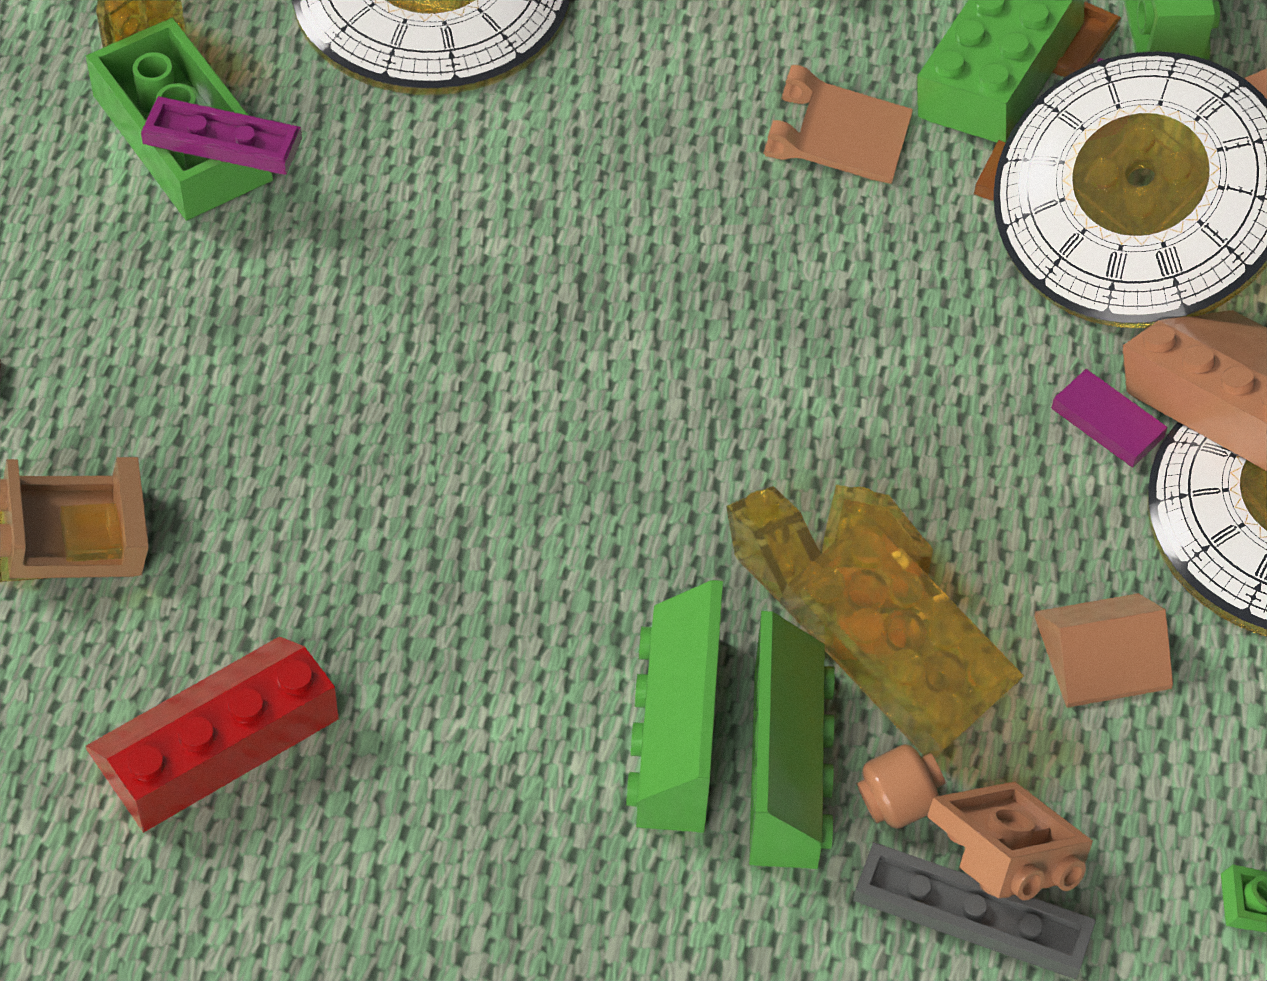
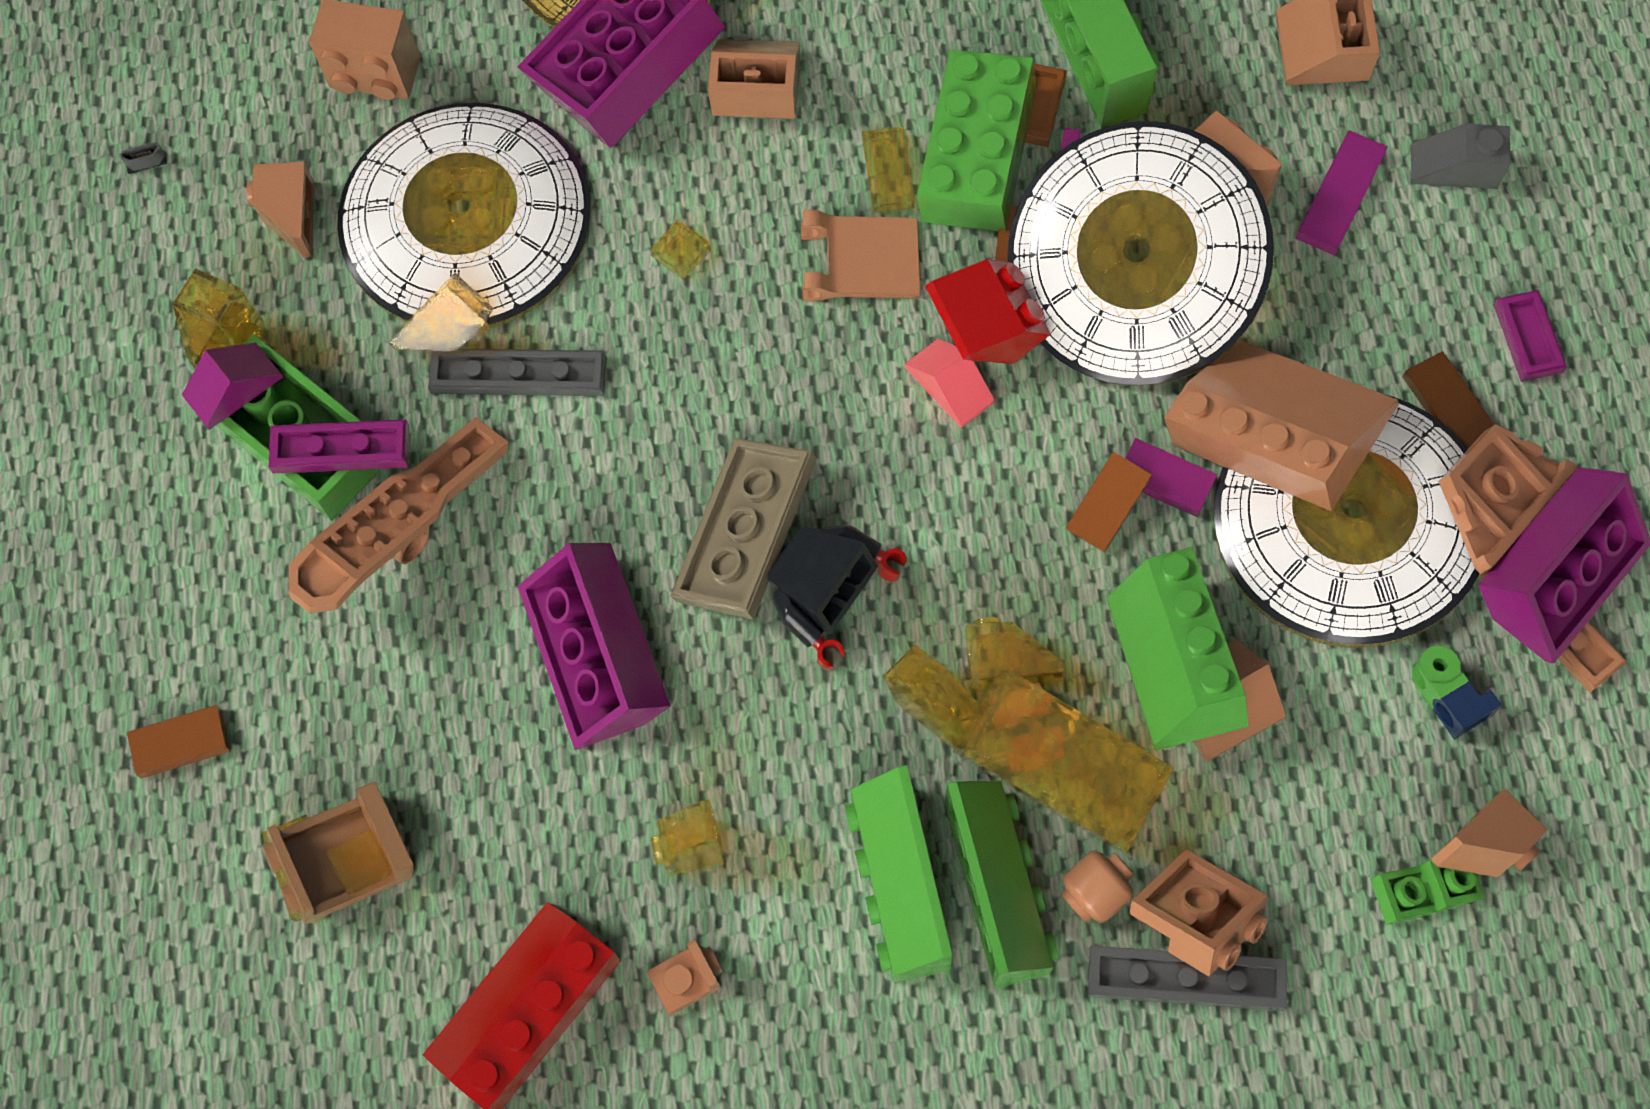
camera: 10 degrees left, 15 degrees up
(129, 46) = (228, 380): none -> magenta slope
(250, 220) = (390, 520): none -> nougat piece
(377, 63) = (446, 319): none -> clear yellow slope
(405, 750) = (686, 977): none -> nougat bracket
(421, 401) = (592, 644): none -> magenta slope
(434, 138) = (518, 372): none -> dark grey tile
(458, 609) = (688, 840): none -> clear yellow slope
(624, 338) = (743, 527): none -> dark tan tile
(648, 73) = (680, 249): none -> clear yellow tile
(692, 403) = (822, 577): none -> black torso
(896, 58) = (888, 169): none -> clear yellow tile
(901, 266) = (951, 381): none -> coral slope
(962, 202) = (989, 312): none -> red slope
(1036, 420) = (1108, 502): none -> dark orange tile
(1065, 568) = (1177, 651): none -> bright green slope

